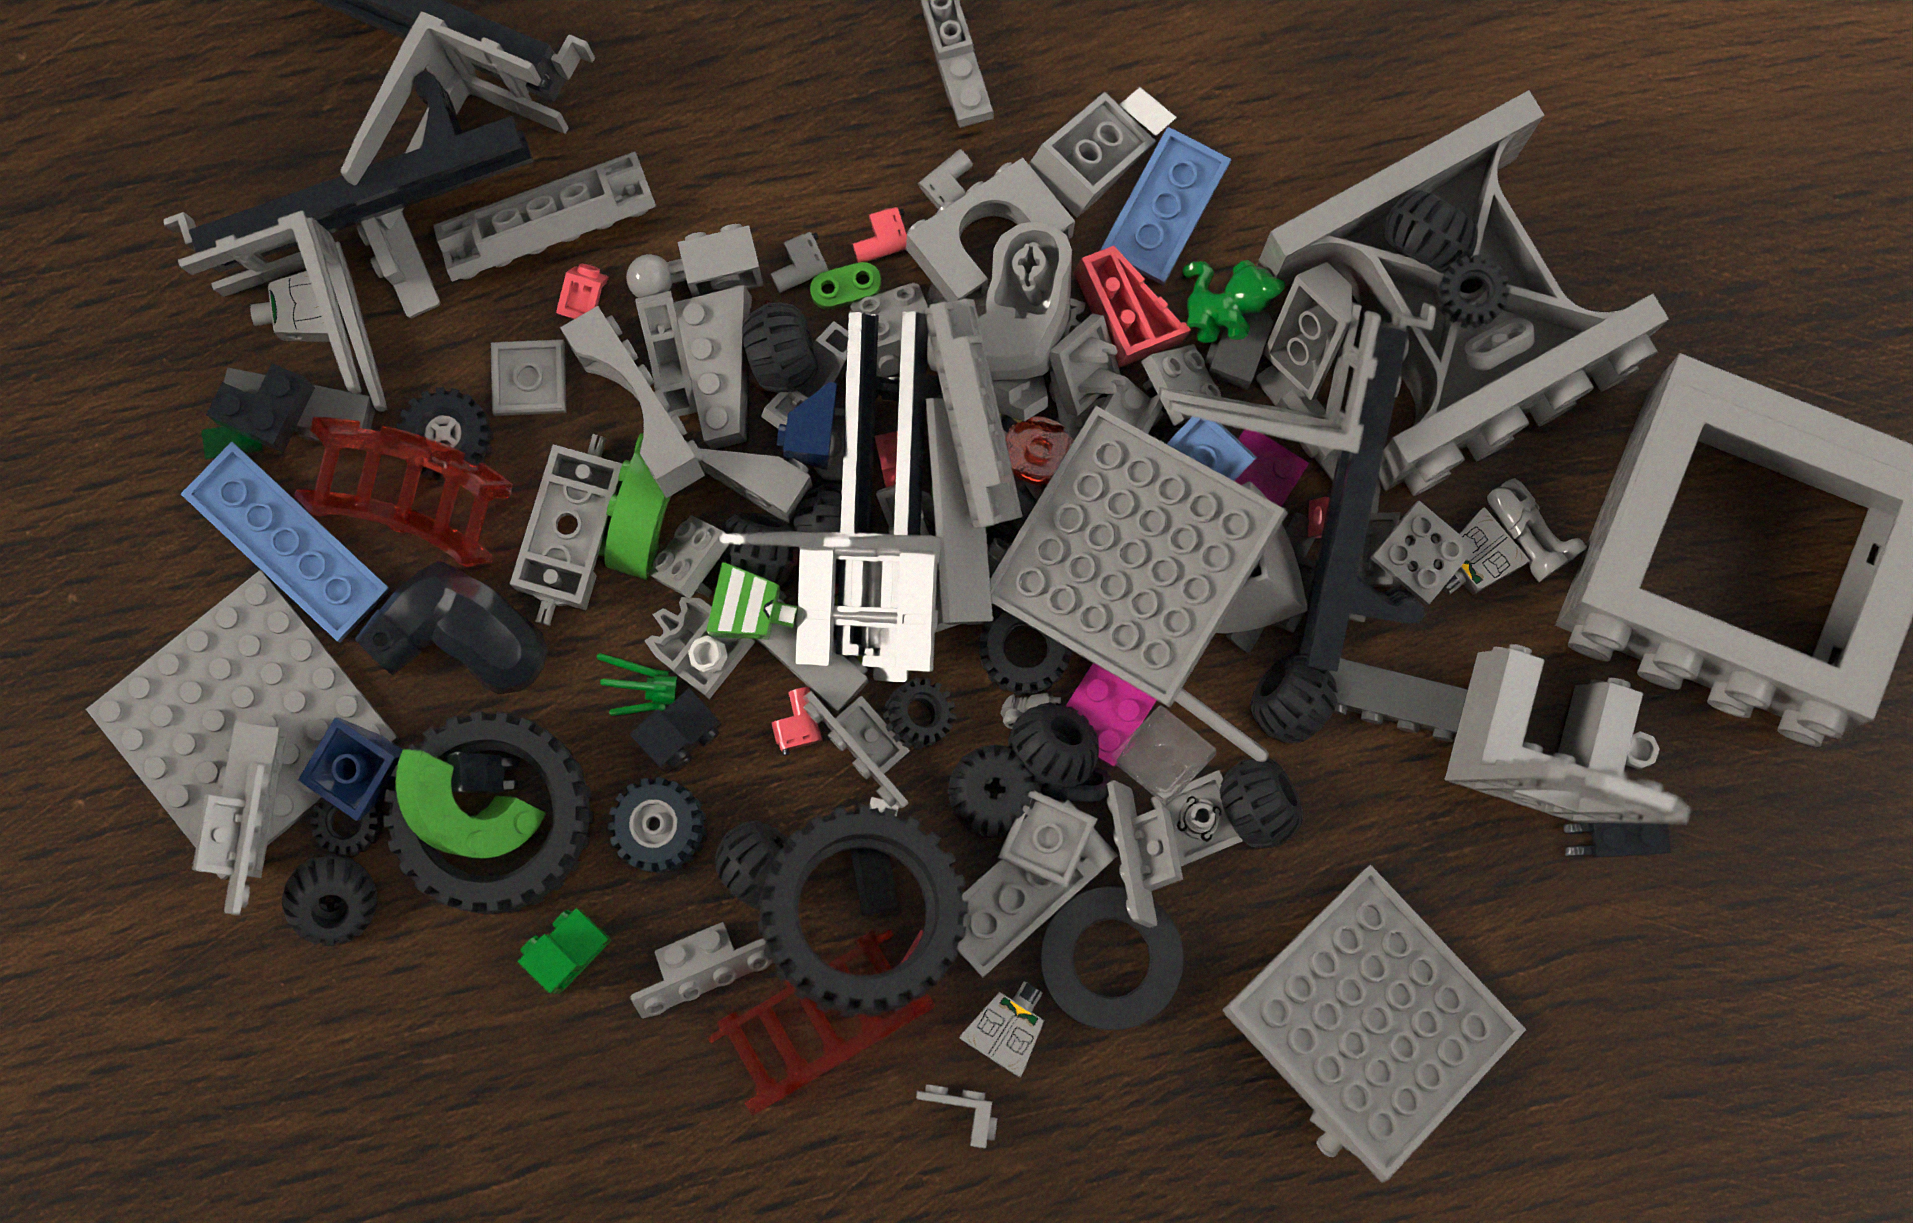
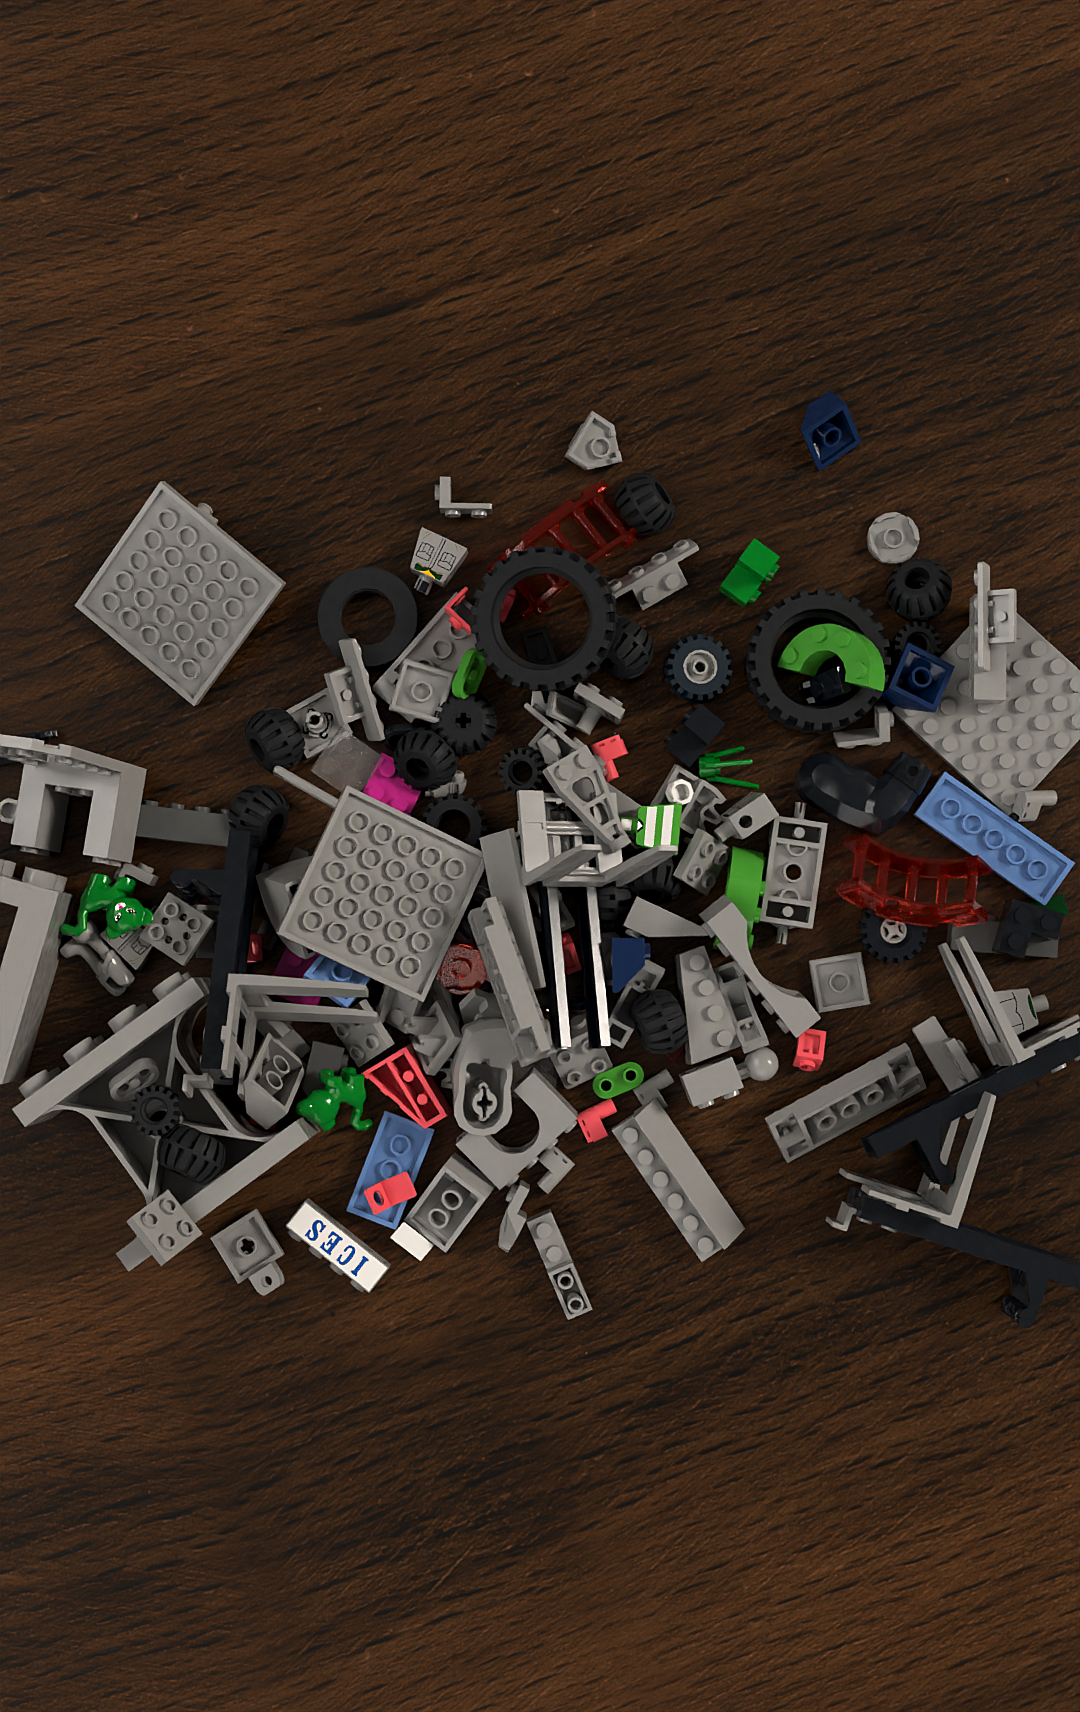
camera: 175 degrees right, 5 degrees up
(227, 582) = (1029, 803): none -> light grey piece
(354, 981) = (892, 538): none -> light grey tile
(420, 1148) = (828, 430): none -> dark blue slope
(432, 704) = (872, 736): none -> light grey bracket
(620, 608) = (754, 812): none -> light grey torso
(698, 1073) = (645, 504): none -> black wheel
(758, 1171) = (594, 444): none -> light grey plate
(782, 144) = (678, 1179): none -> light grey slope
(807, 786) = (596, 707): none -> light grey plate
(846, 786) = (564, 709): none -> light grey tile
(854, 695) = (572, 769): none -> light grey plate
(876, 725) = (549, 749): none -> light grey arm
(979, 853) = (469, 674): none -> bright green plate
(989, 933) = (455, 620): none -> coral bracket
(1006, 121) = (513, 1217): none -> light grey plate
(1168, 172) = (391, 1192): none -> coral bracket
(1247, 116) = (338, 1245): none -> brick
(1358, 105) = (255, 1264): none -> light grey plate
(1466, 641) = (141, 872): none -> light grey bracket
(1476, 132) = (164, 1227): none -> light grey plate
(1495, 579) = (122, 913): none -> green animal

